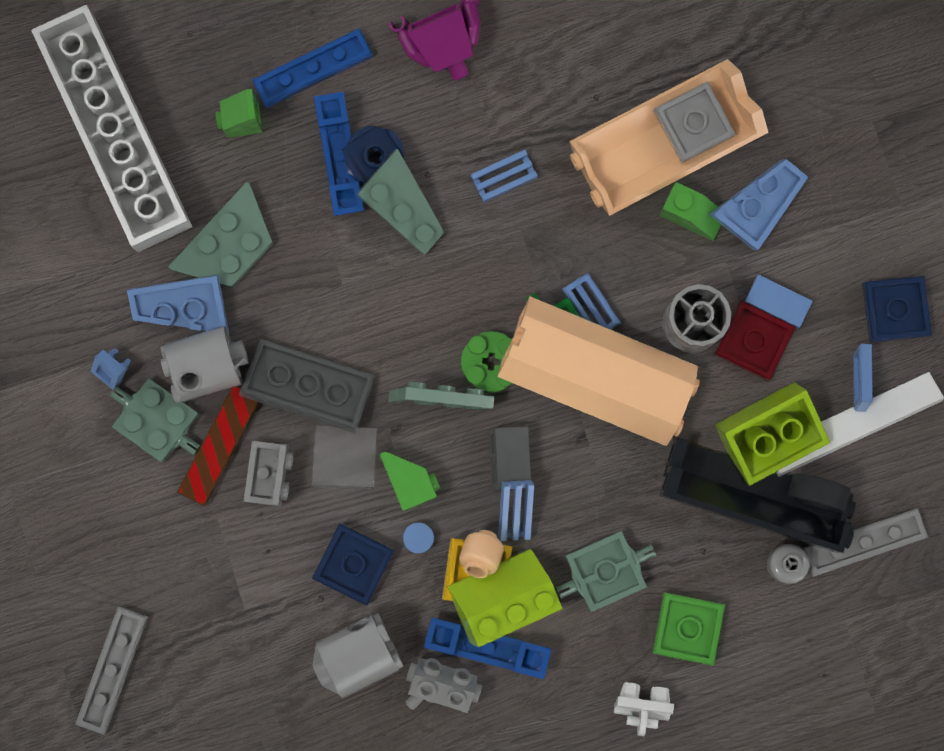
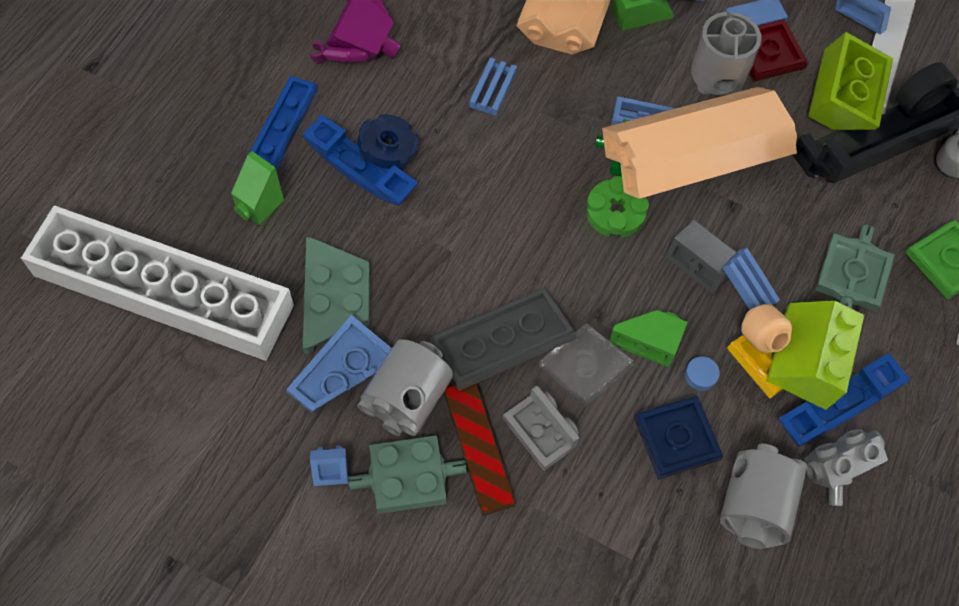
camera: 45 degrees left, 20 degrees down
(401, 203) = (441, 155): sand green wing -> none
(444, 395) = (614, 251): sand green wing -> none

